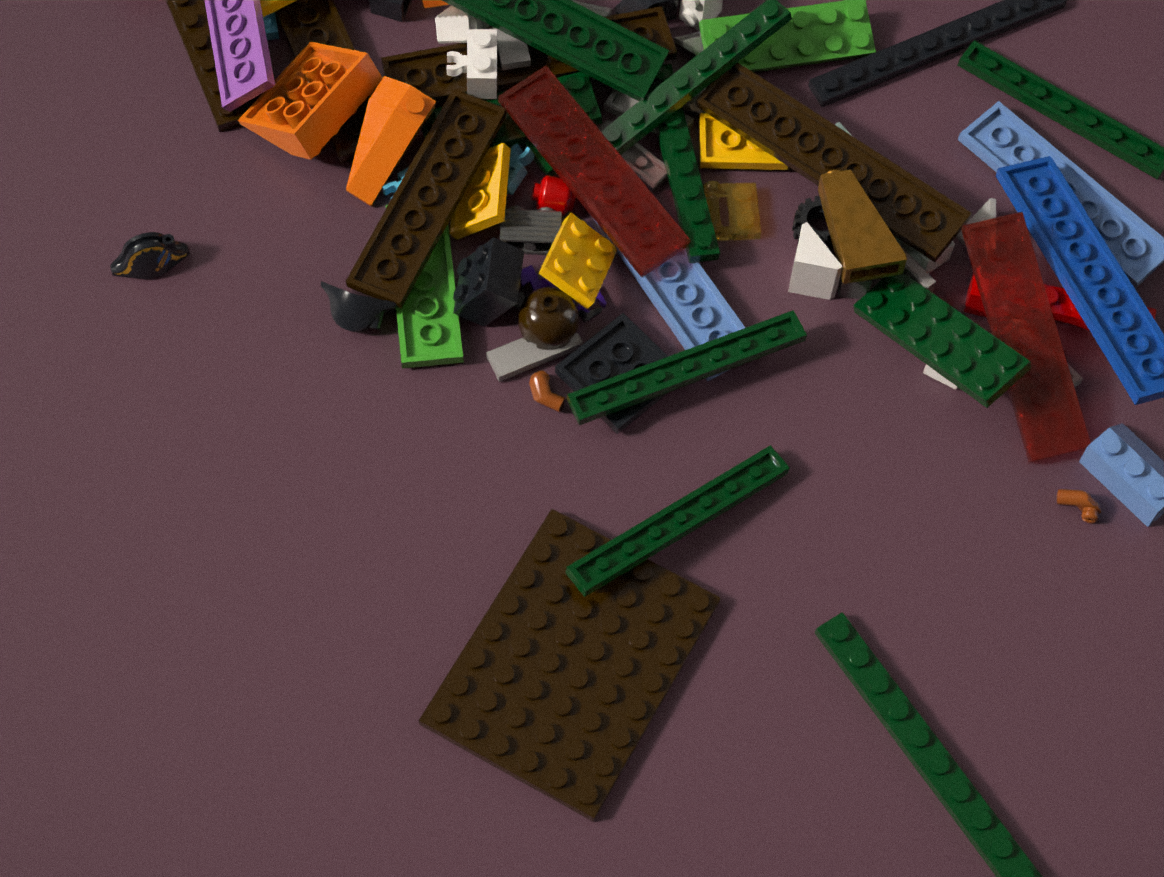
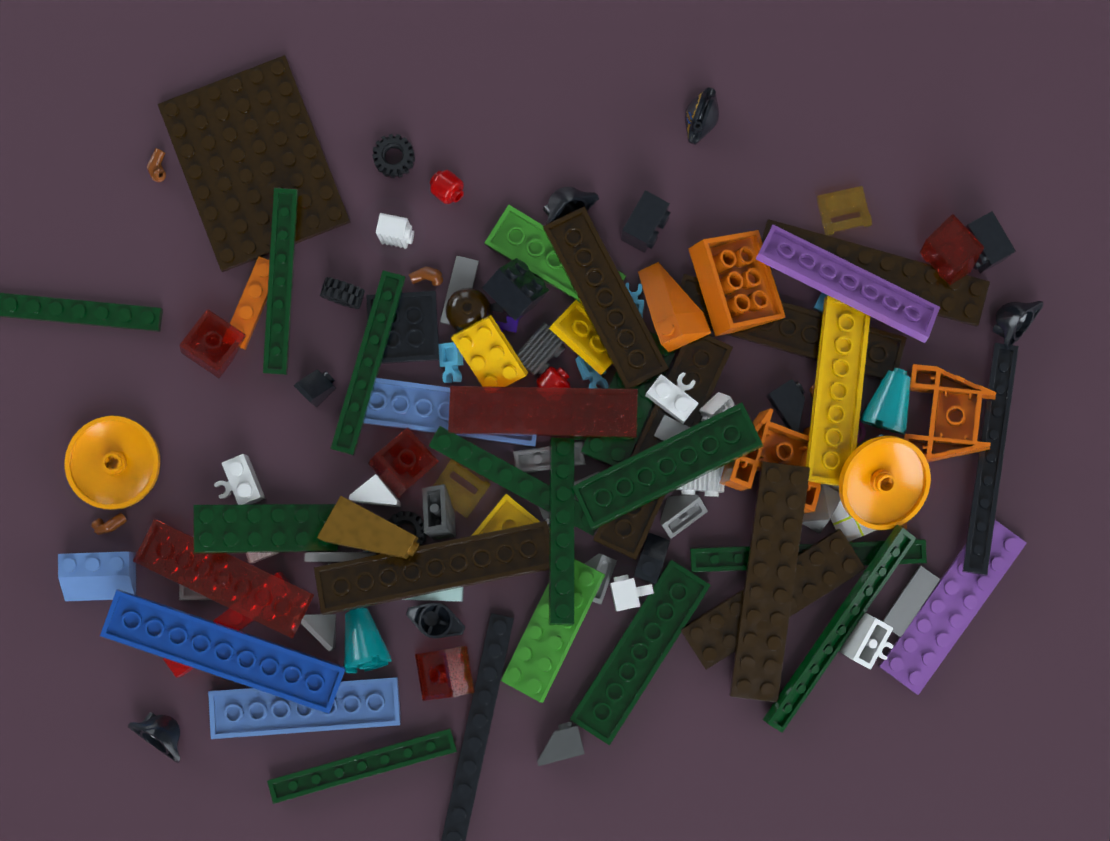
camera: 135 degrees right, 20 degrees up
(149, 78) = (843, 203): none -> clear yellow plate
(314, 217) = (644, 222): none -> black brick
(432, 436) = (446, 187): none -> red head
(437, 499) = (393, 169): none -> black tyre
(527, 443) = (394, 231): none -> white brick
(612, 302) = (450, 359): none -> medium azure plate
(638, 447) = (342, 293): none -> black tyre
(668, 762) = (154, 166): none -> dark orange arm
(727, 542) = (252, 300): none -> orange plate
(757, 269) = (403, 462): none -> clear red slope
(758, 401) = (316, 387): none -> black slope
(775, 202) = (438, 513): none -> dark grey slope
(806, 536) = (212, 343): none -> clear red slope
(878, 130) = (435, 620): none -> black hat
(916, 98) = (444, 673): none -> clear red slope
(916, 403) = (241, 481): none -> white brick
(964, 171) = (363, 643): none -> teal cone
(1018, 540) = (112, 462): none -> light orange dish

